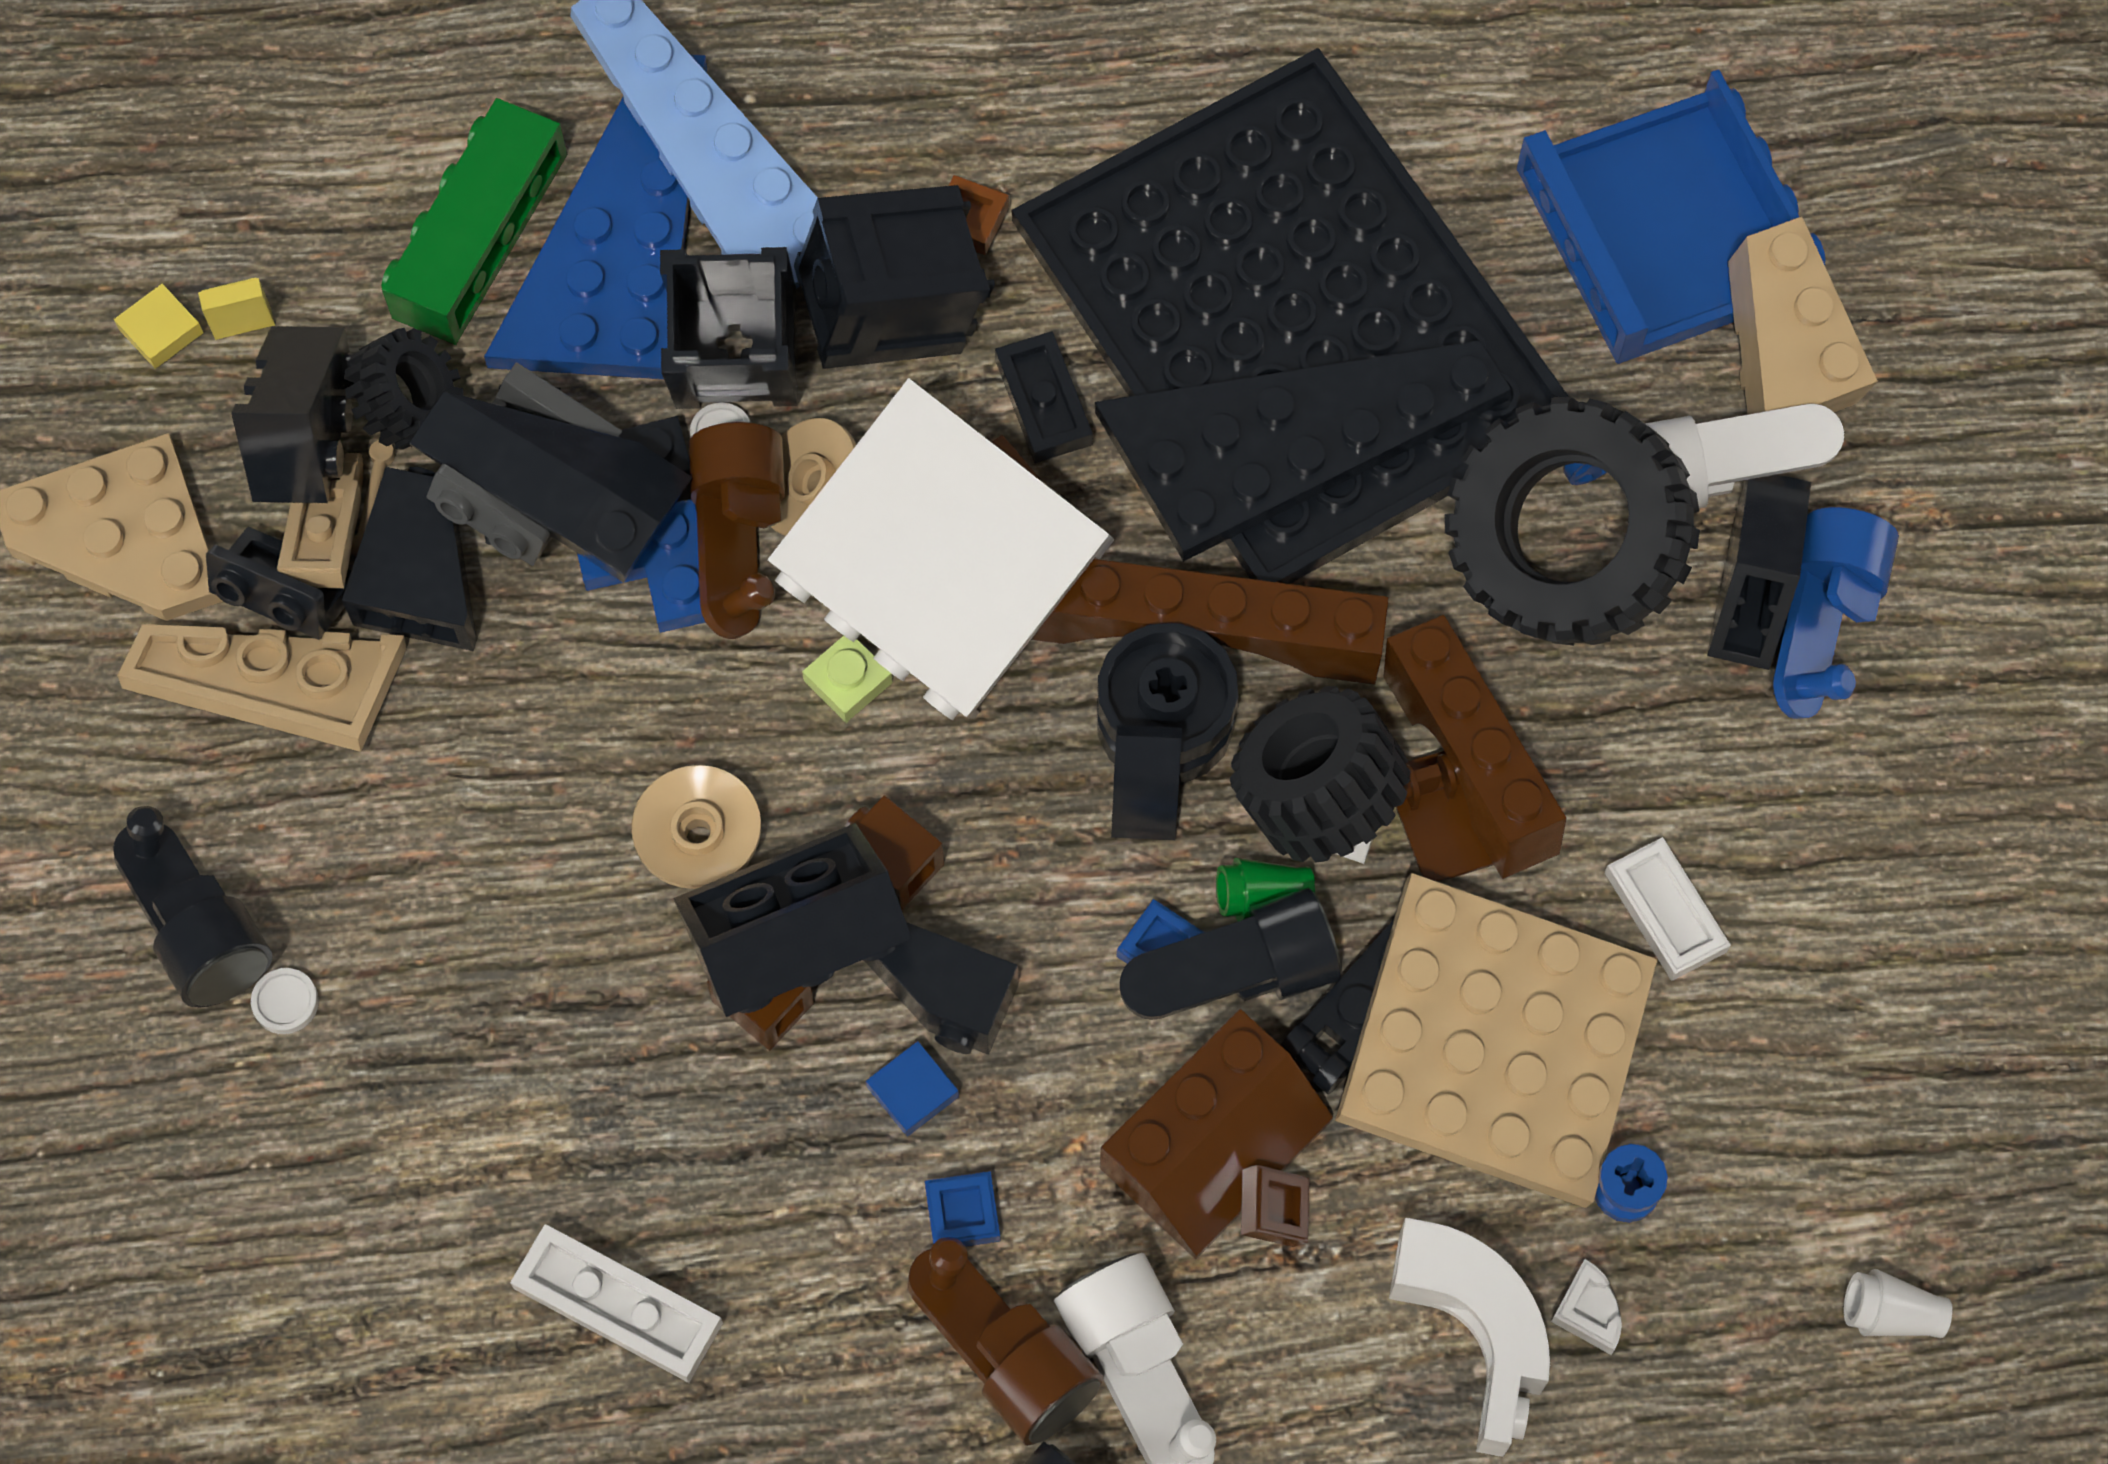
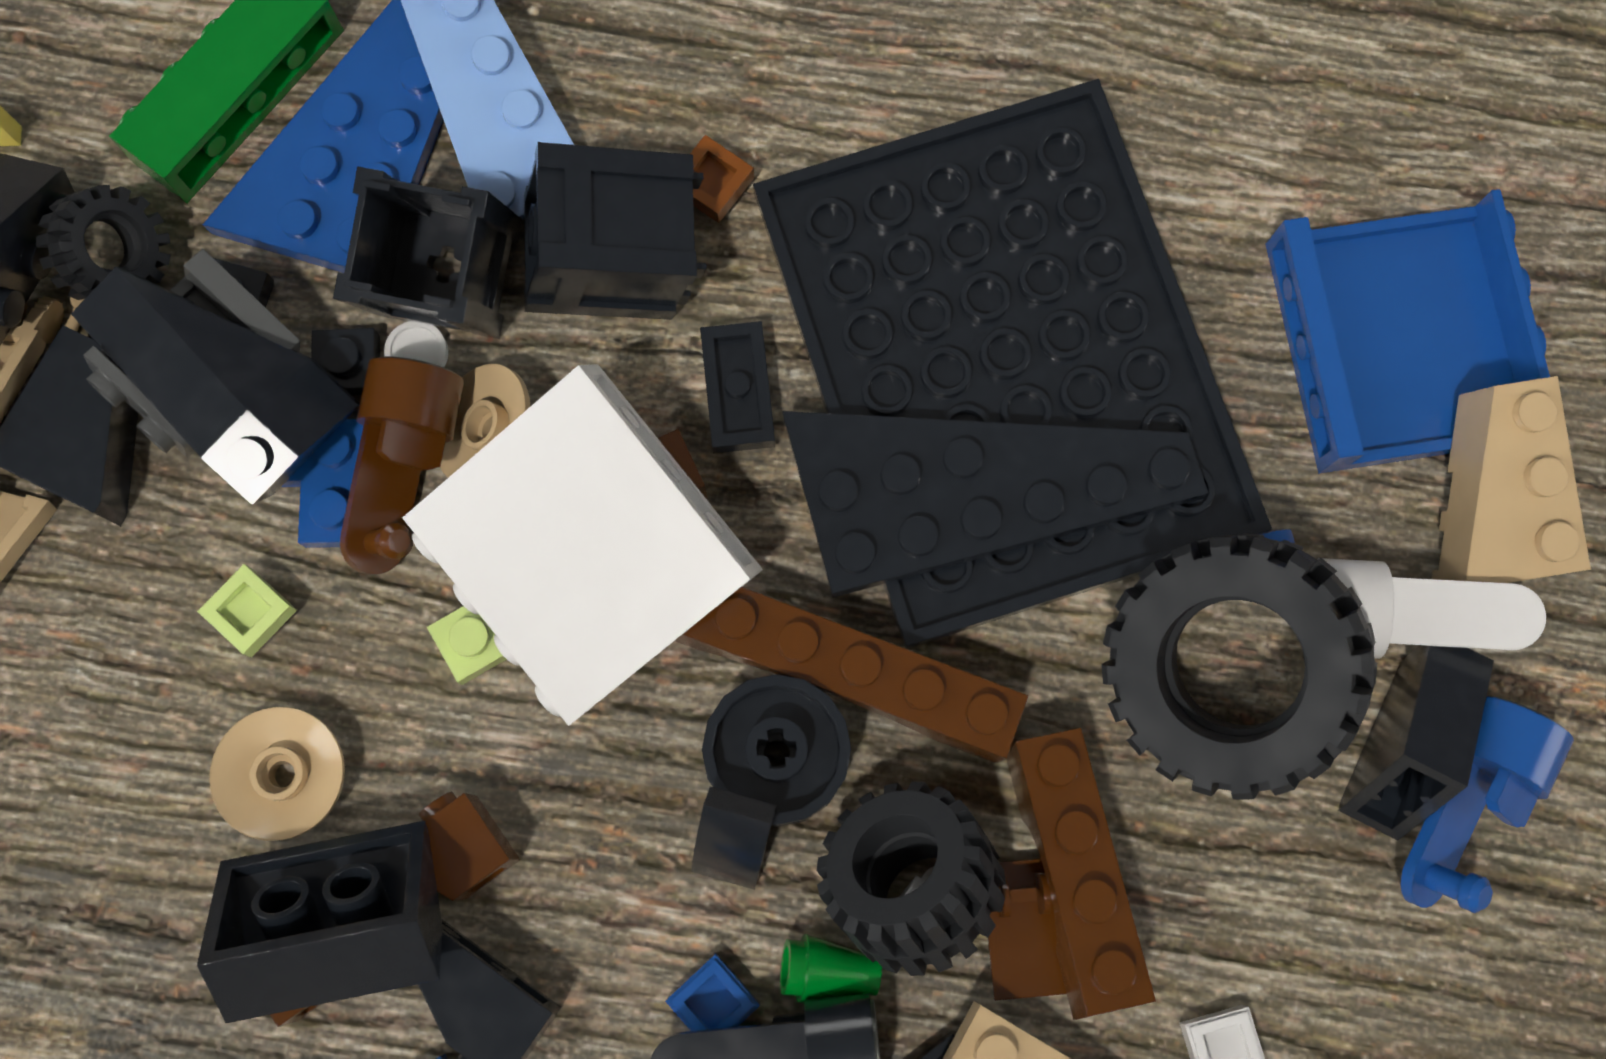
camera: 10 degrees right, 10 degrees up
(625, 692) = (247, 610): none -> yellowish green plate

